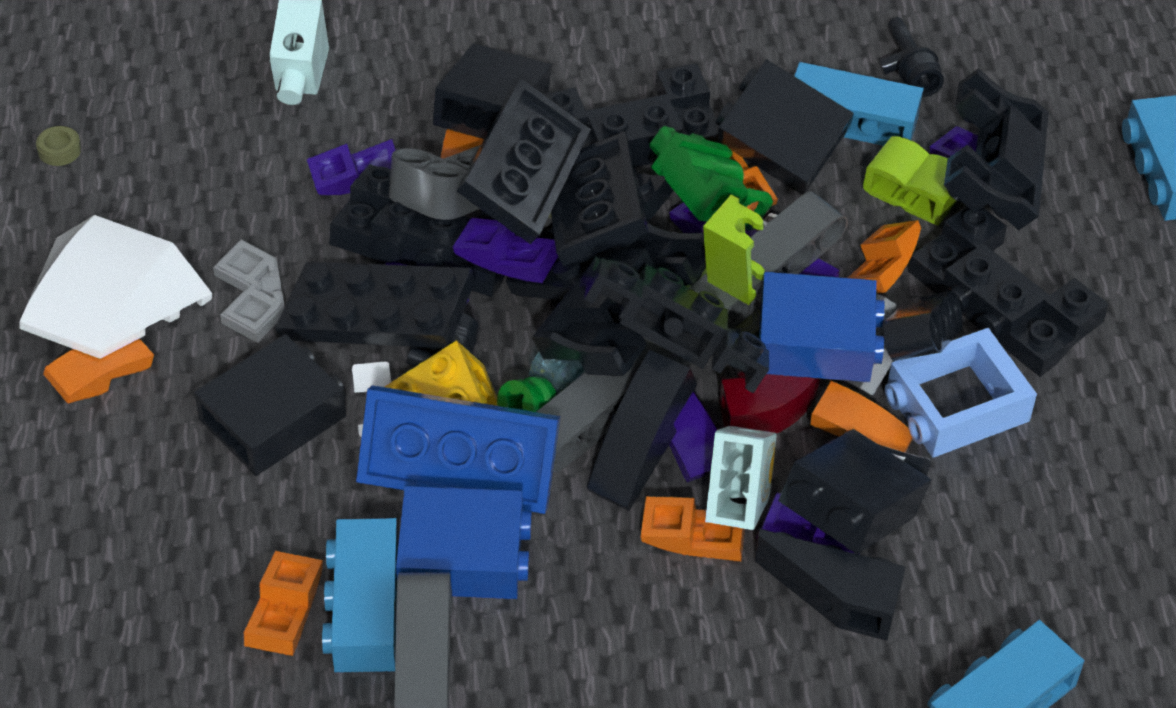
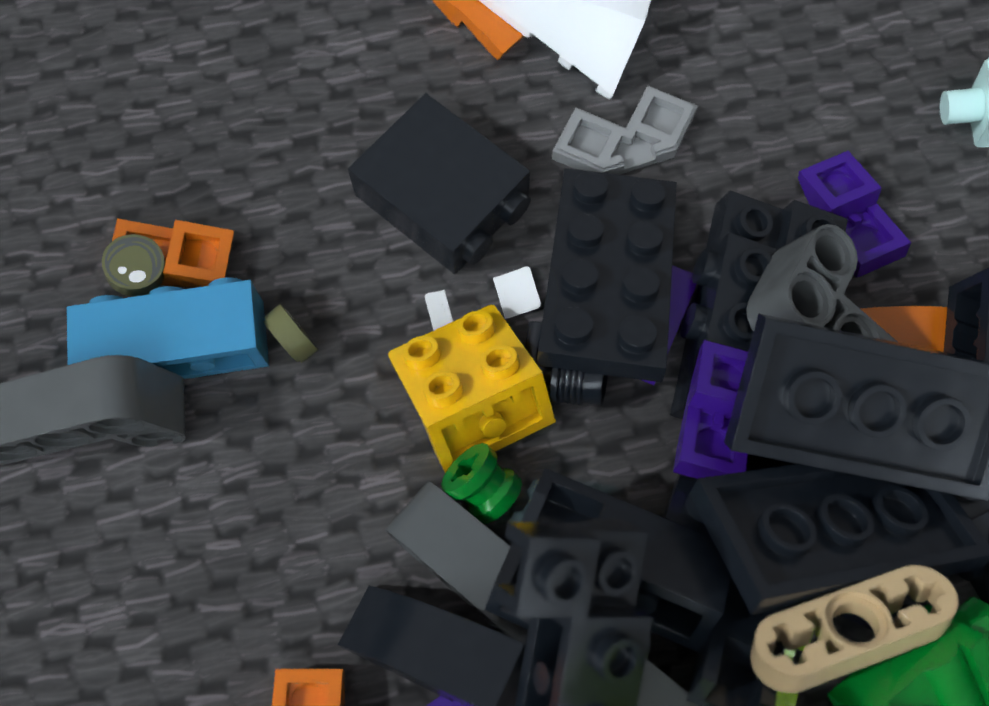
camera: 85 degrees right, 20 degrees up
(295, 615) = (133, 265): none -> olive tile
(381, 507) = (290, 334): none -> olive tile
(456, 445) = (379, 409): blue plate -> none
(467, 535) = (249, 437): blue brick -> none
(675, 200) = (836, 656): none -> tan beam

